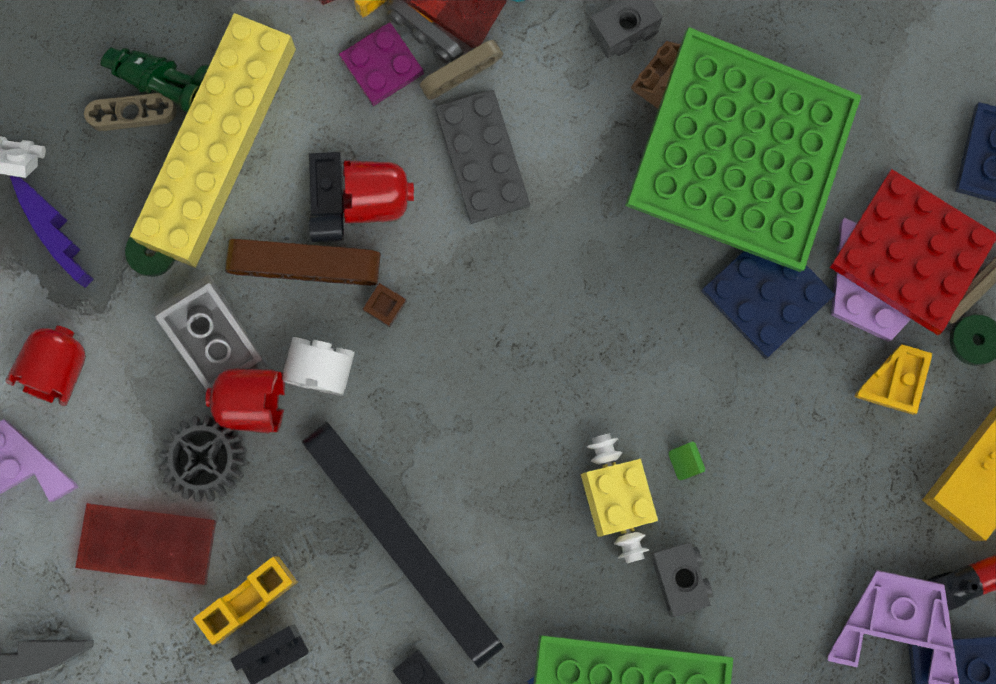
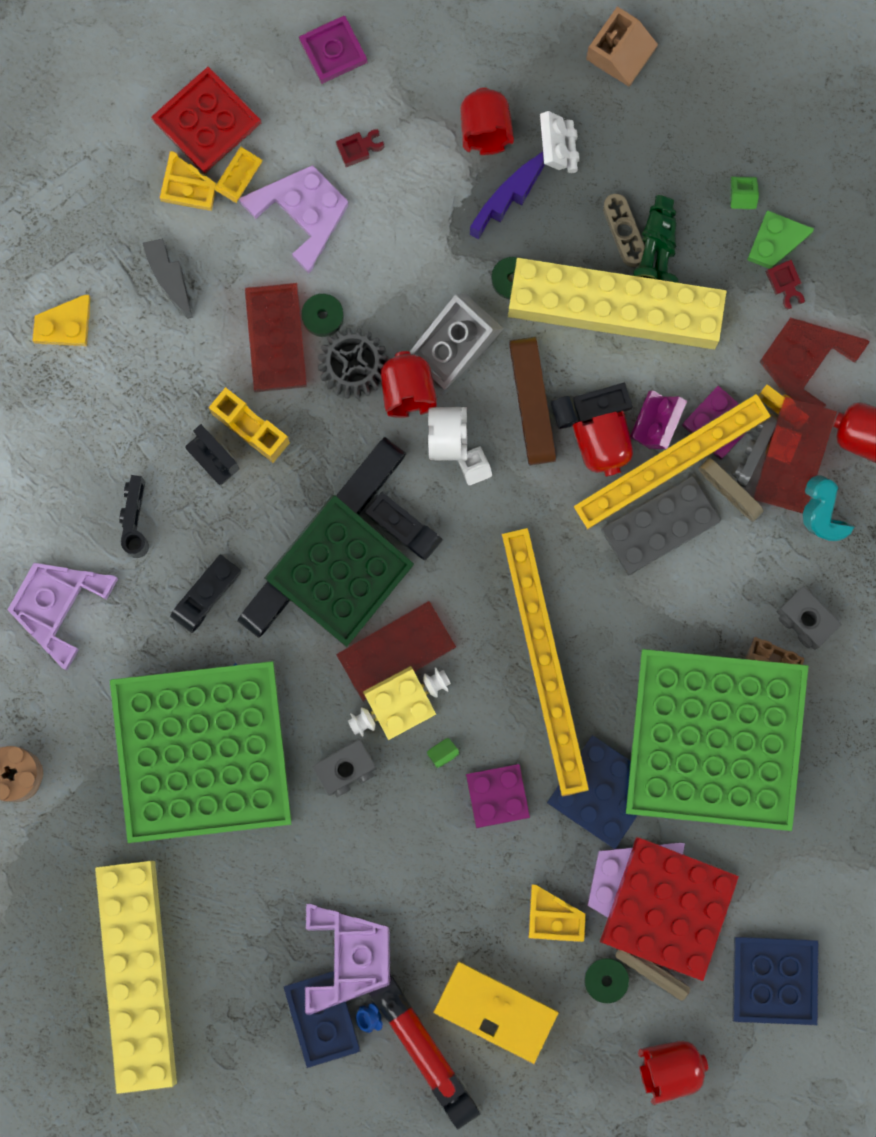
camera: 80 degrees right, 0 degrees up
(49, 364) = (399, 224): red cylinder -> none
(119, 482) = (322, 303): none -> dark green piece
(363, 126) = (657, 420): none -> magenta bracket
(364, 344) = (475, 467): none -> white slope
(384, 305) = (513, 475): reddish brown plate -> none
(413, 444) = (403, 526): none -> black plate
(415, 123) = (672, 461): none -> yellow plate
(449, 532) = (339, 570): none -> dark green plate
(554, 487) = (406, 642): none -> clear red plate
(609, 320) = (545, 663): none -> yellow plate
(748, 411) = (497, 796): none -> magenta plate
(972, 617) = (369, 1018): none -> blue plate

